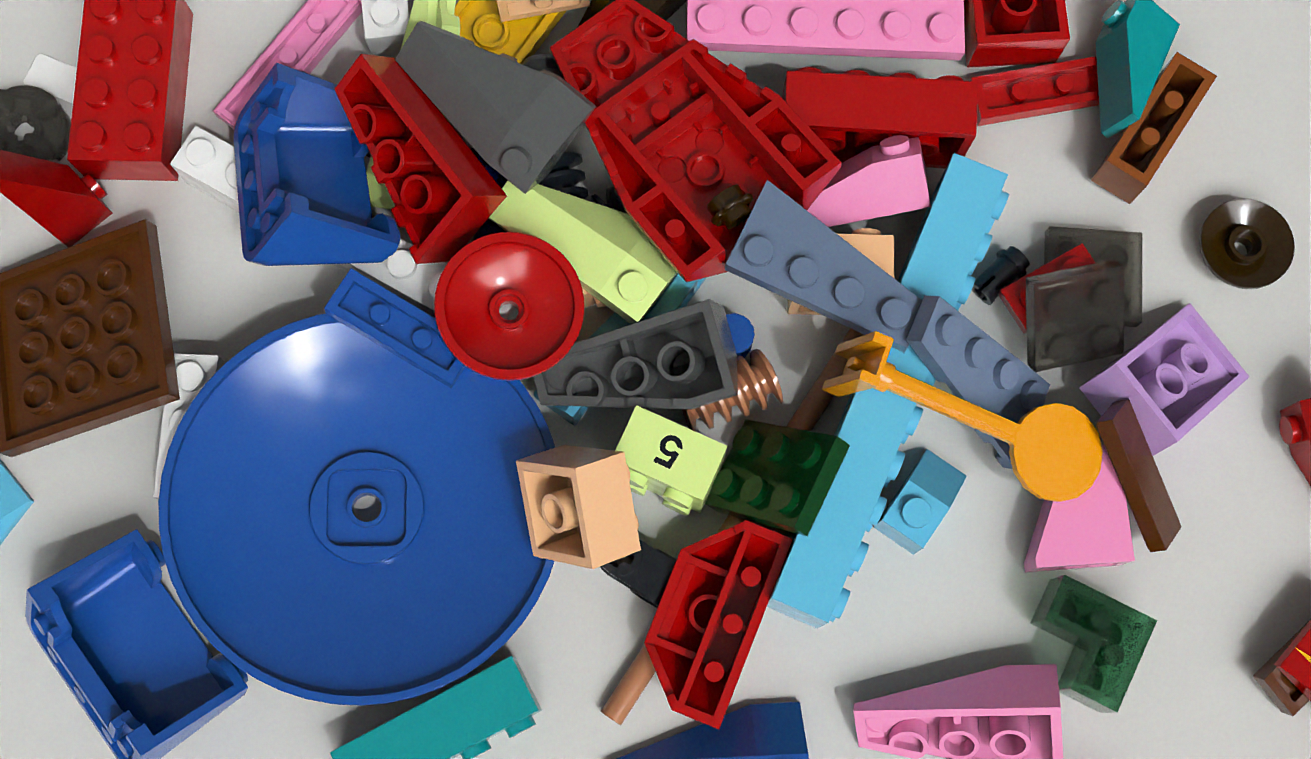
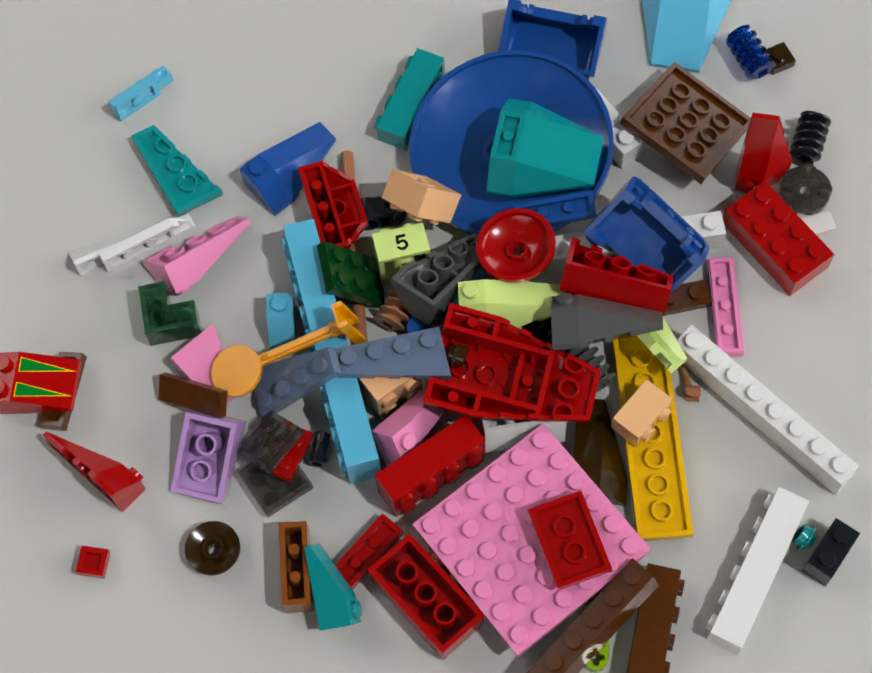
camera: 145 degrees right, 10 degrees down
(335, 435) = (540, 152): none -> teal wedge

